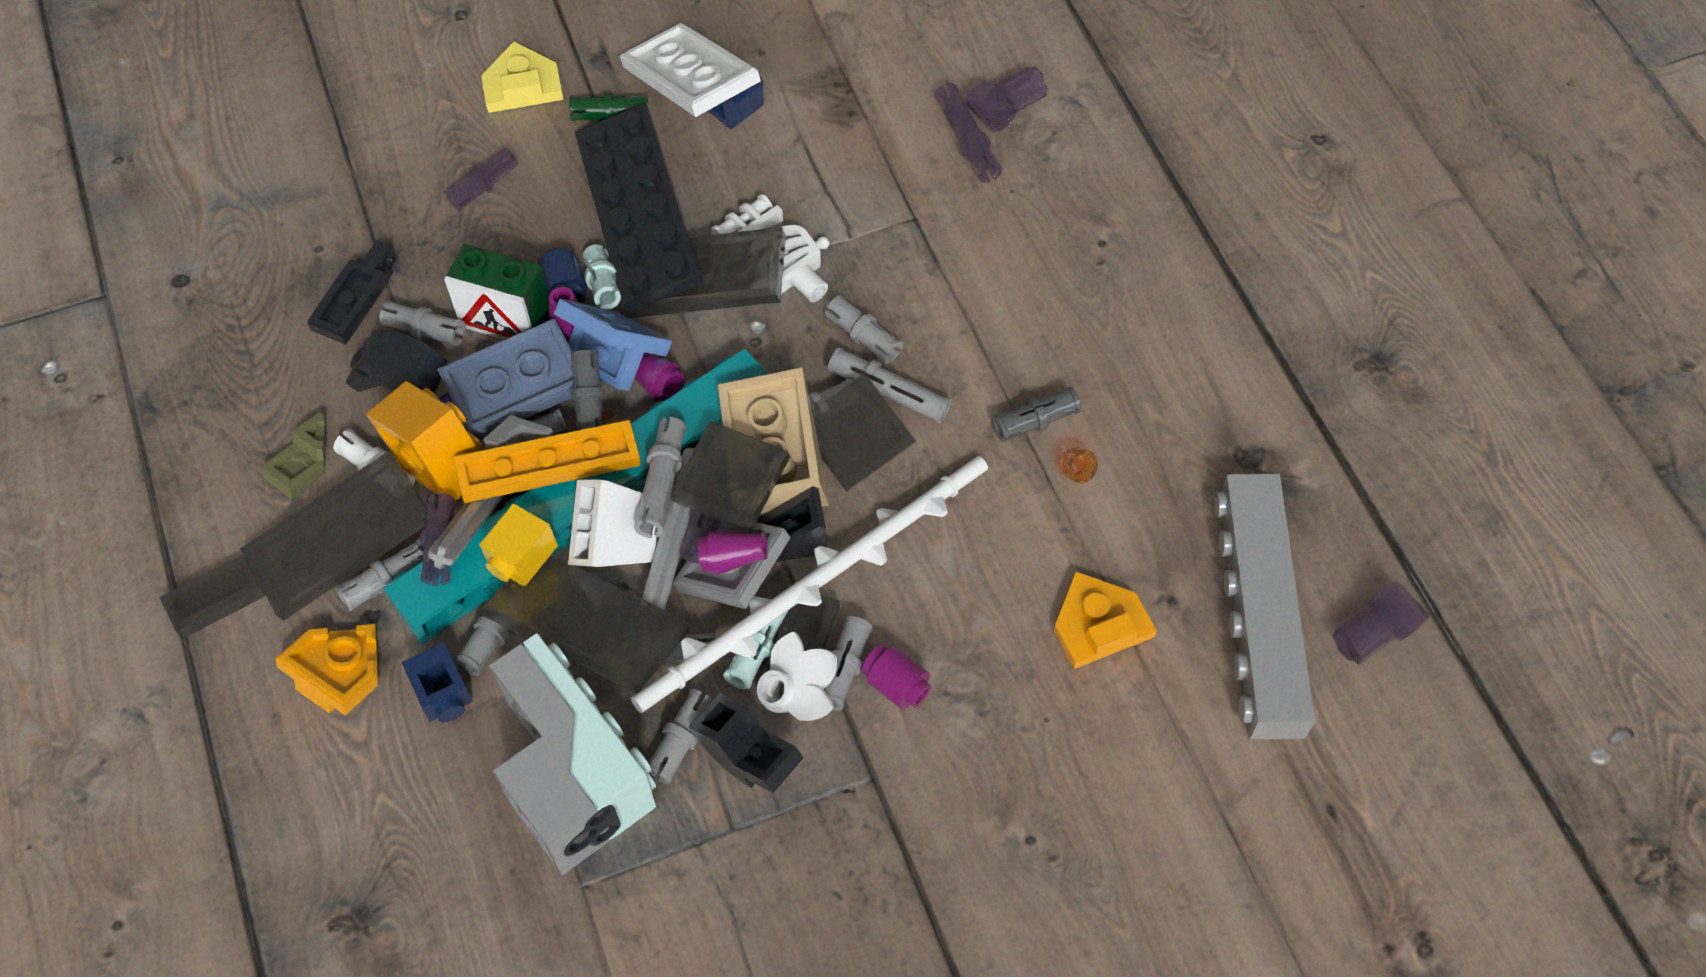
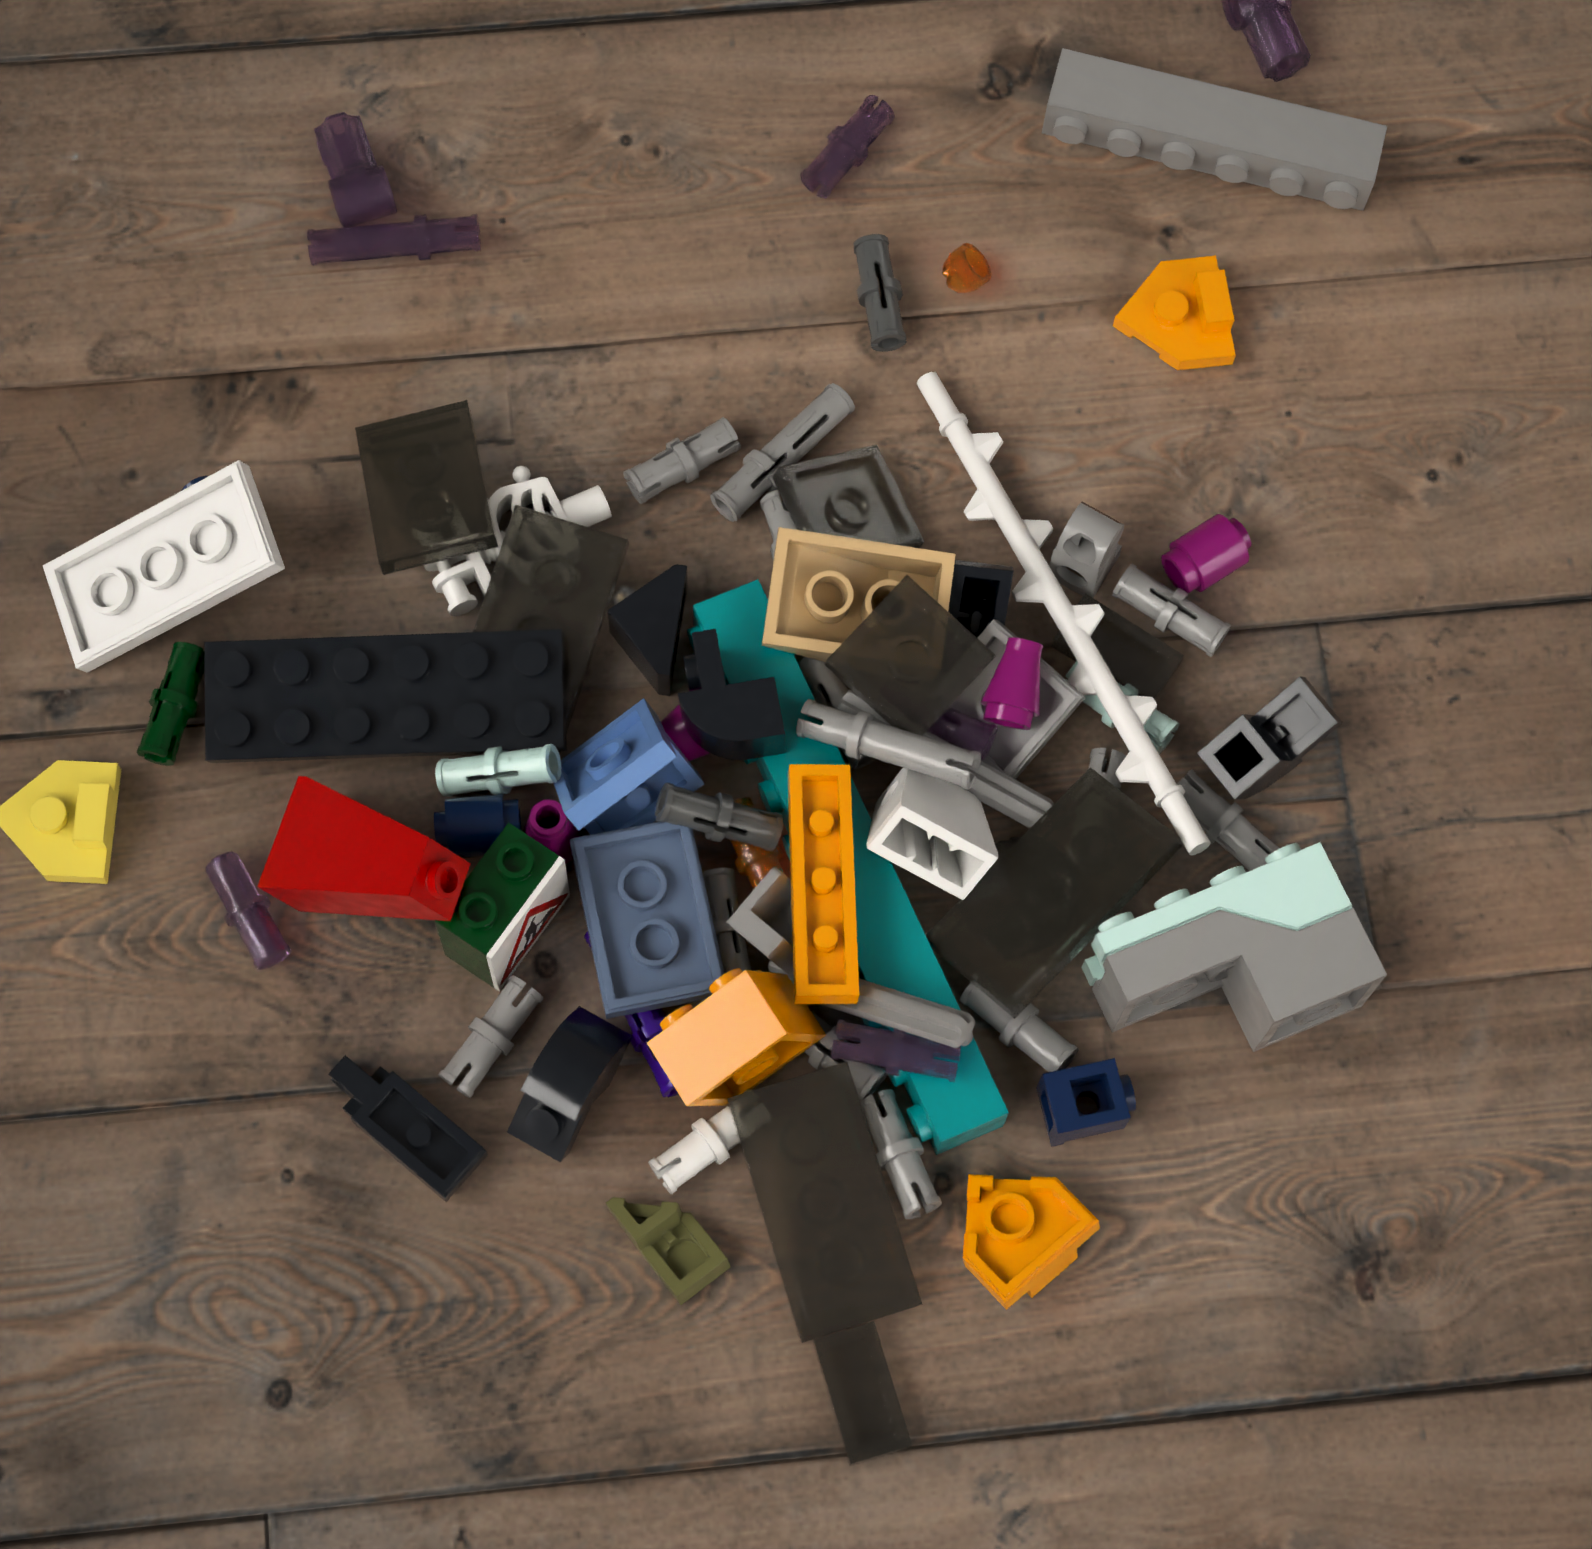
camera: 80 degrees left, 10 degrees up
(511, 207) = (357, 861): none -> red slope
(518, 546) = (944, 945): yellow brick -> none
(660, 374) = (729, 719): none -> black brick
(726, 335) = (650, 626): none -> black slope
(790, 188) = (425, 487): none -> clear smoke tile
(804, 679) = (1190, 655): white plate -> none
(866, 588) = (1089, 548): none -> light grey leg
(1148, 368) = (847, 146): none -> clear purple pin

